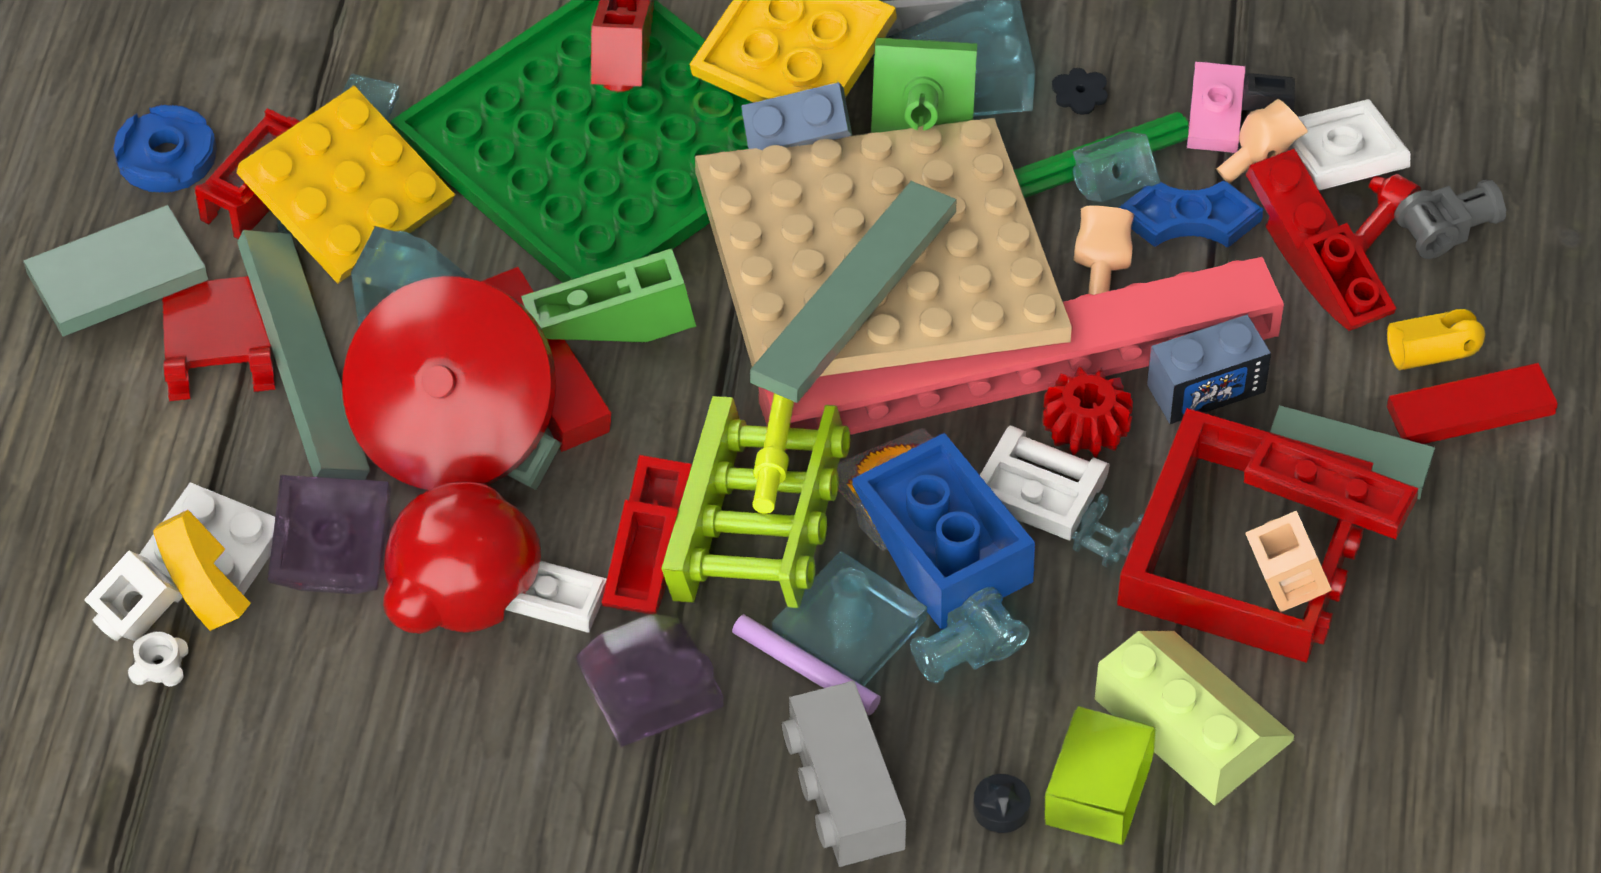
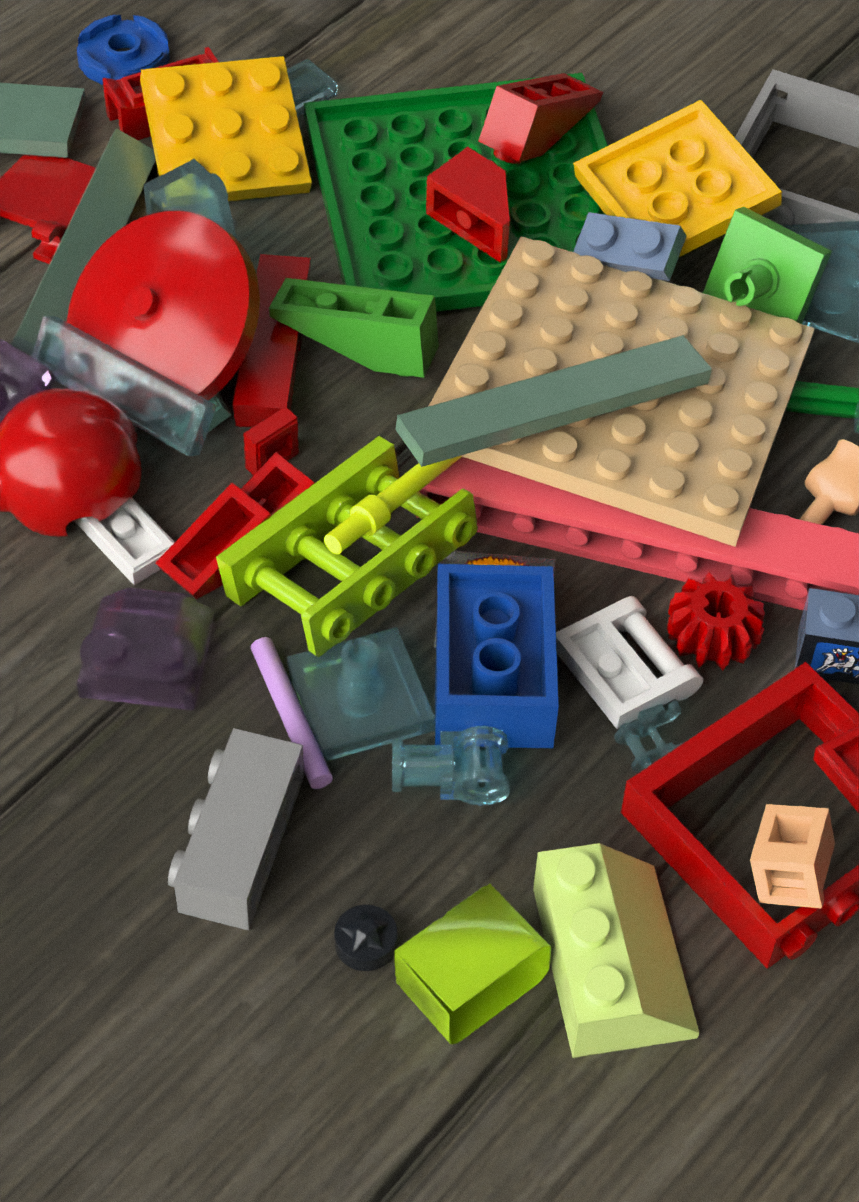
camera: 30 degrees right, 0 degrees up
(431, 461) = (141, 393): none -> clear light blue tile
(617, 450) = (272, 435): none -> red tile
(633, 144) = (472, 201): none -> red slope

